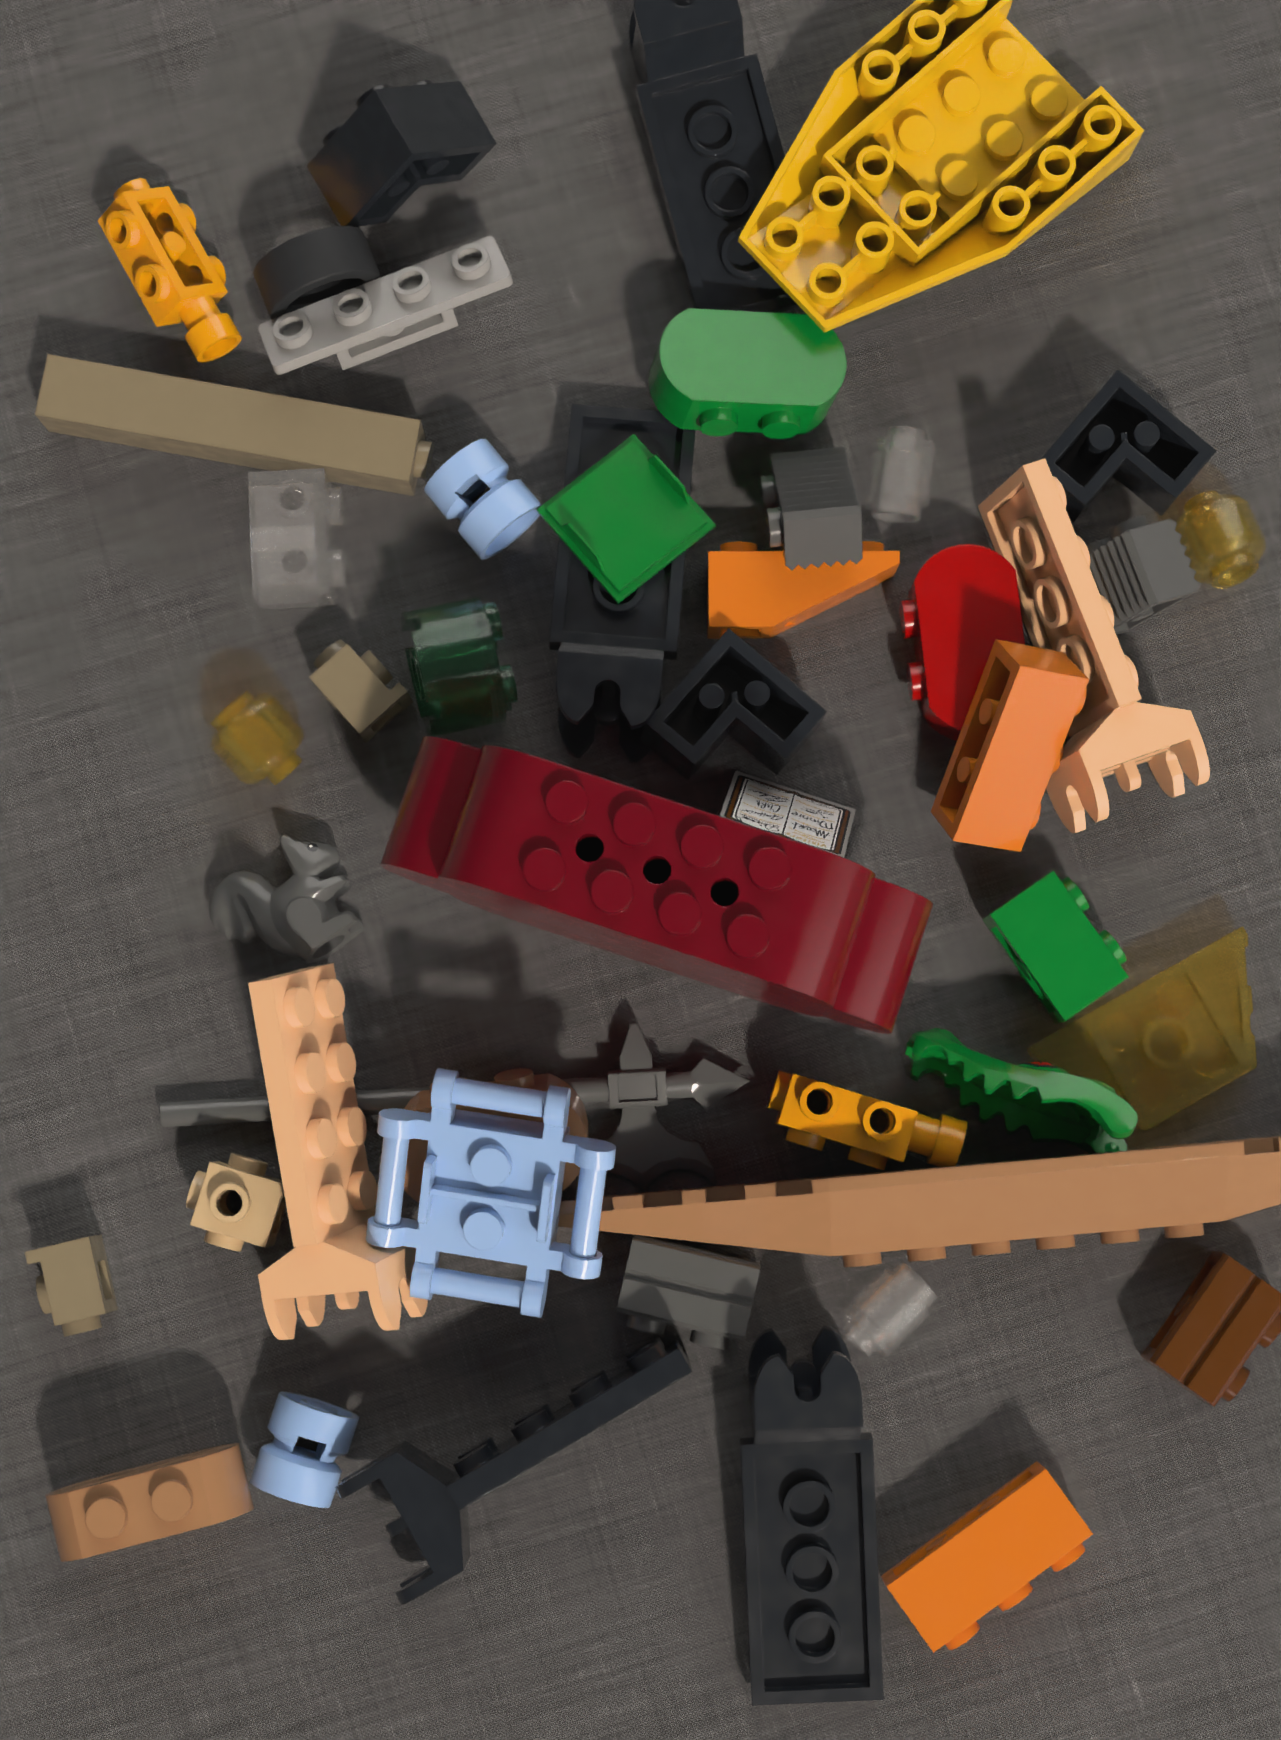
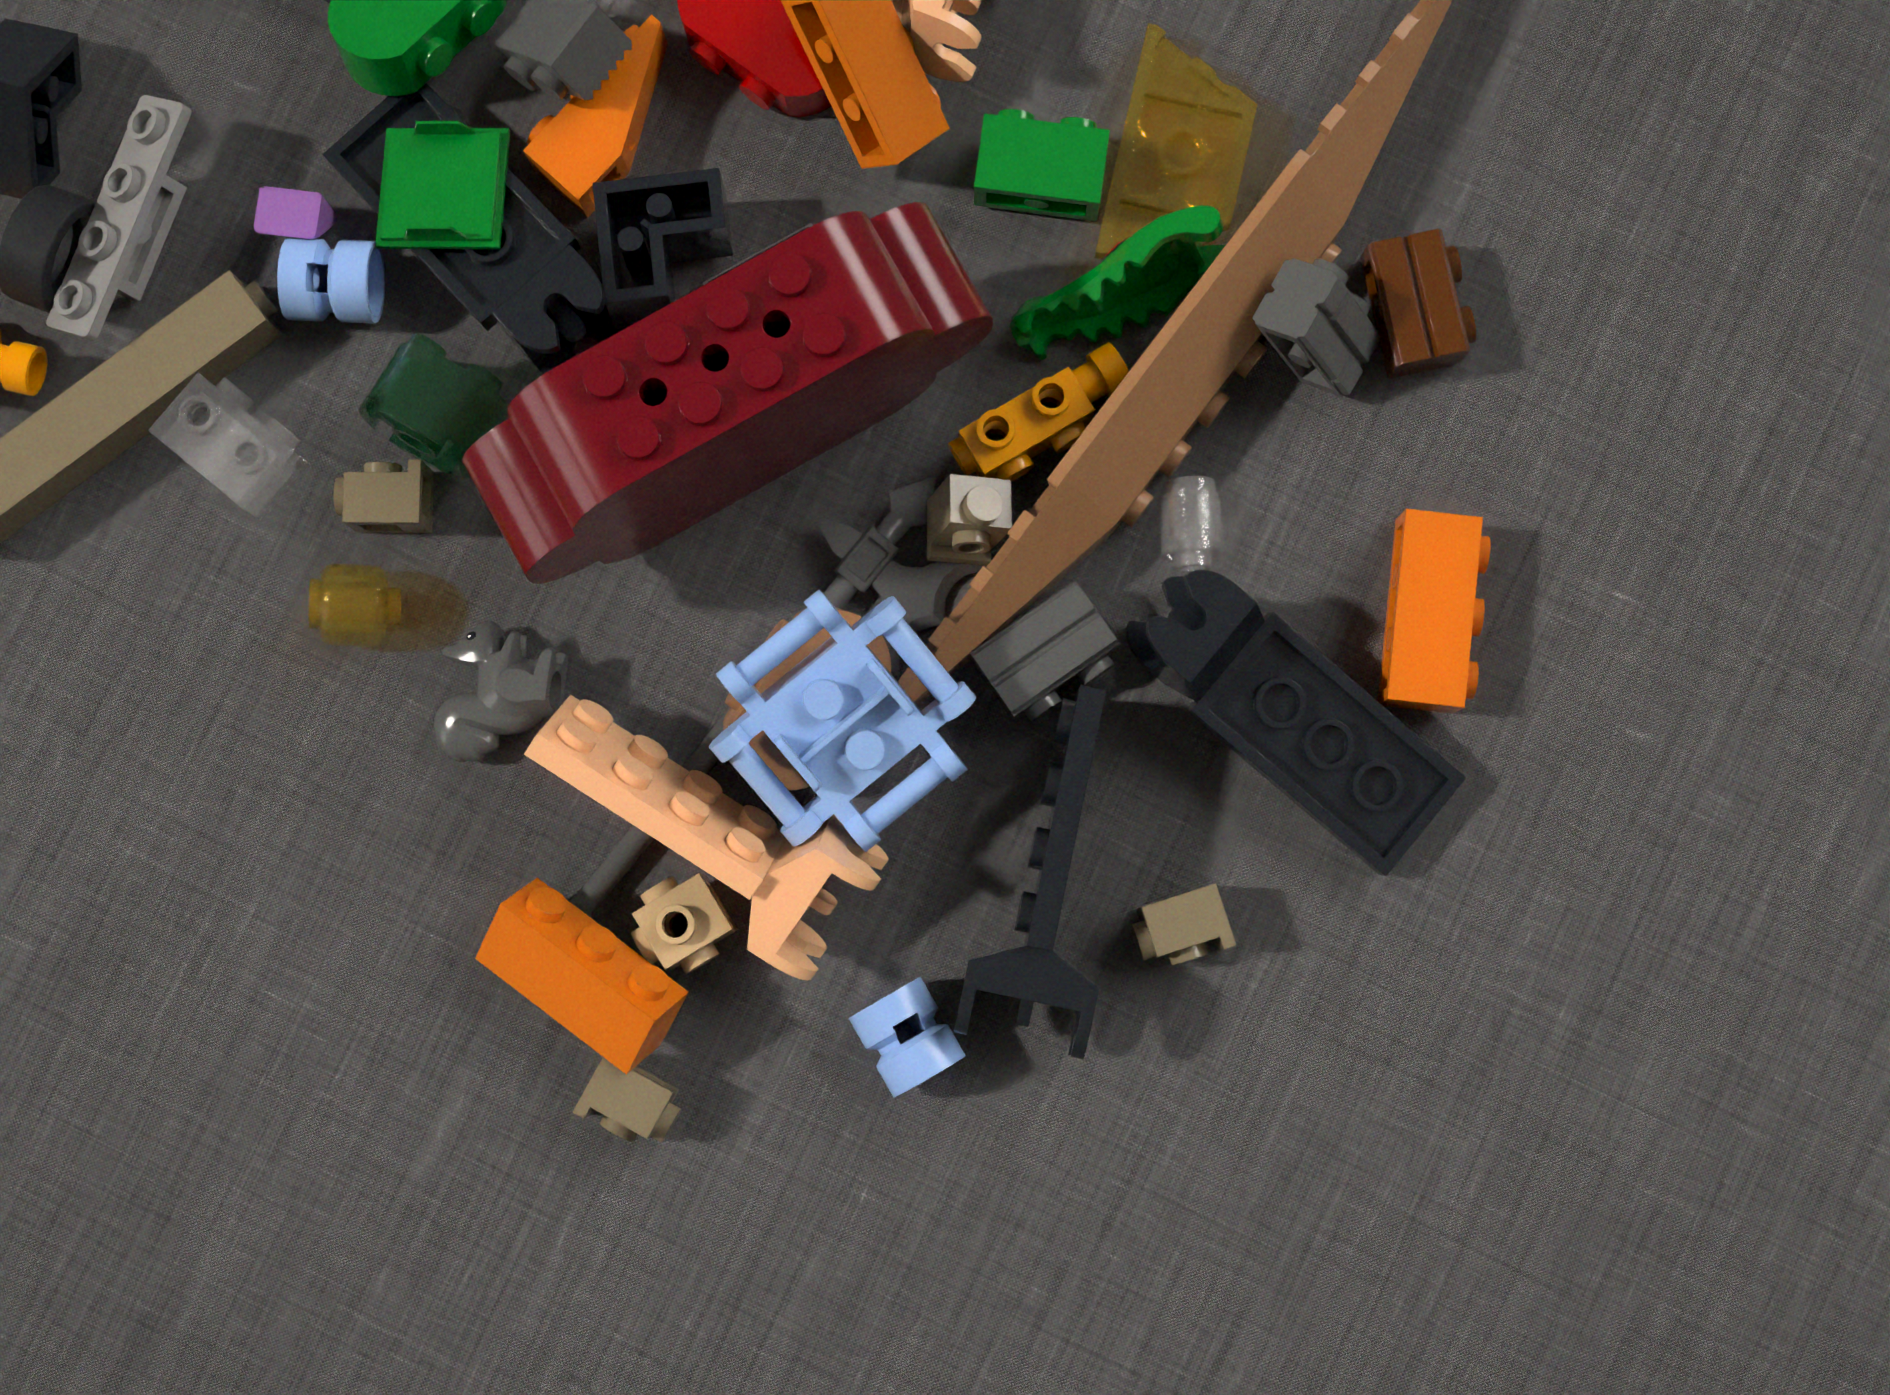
camera: 45 degrees left, 0 degrees up
(132, 1164) = (581, 975): none -> orange brick
(149, 1502) = (840, 1184): medium nougat brick -> none
(505, 425) = (293, 213): none -> medium lavender slope
(575, 1582) = (1183, 925): none -> dark tan brick
(734, 1139) = (967, 519): none -> dark tan brick
(1125, 1273) = (1318, 325): none -> dark grey brick

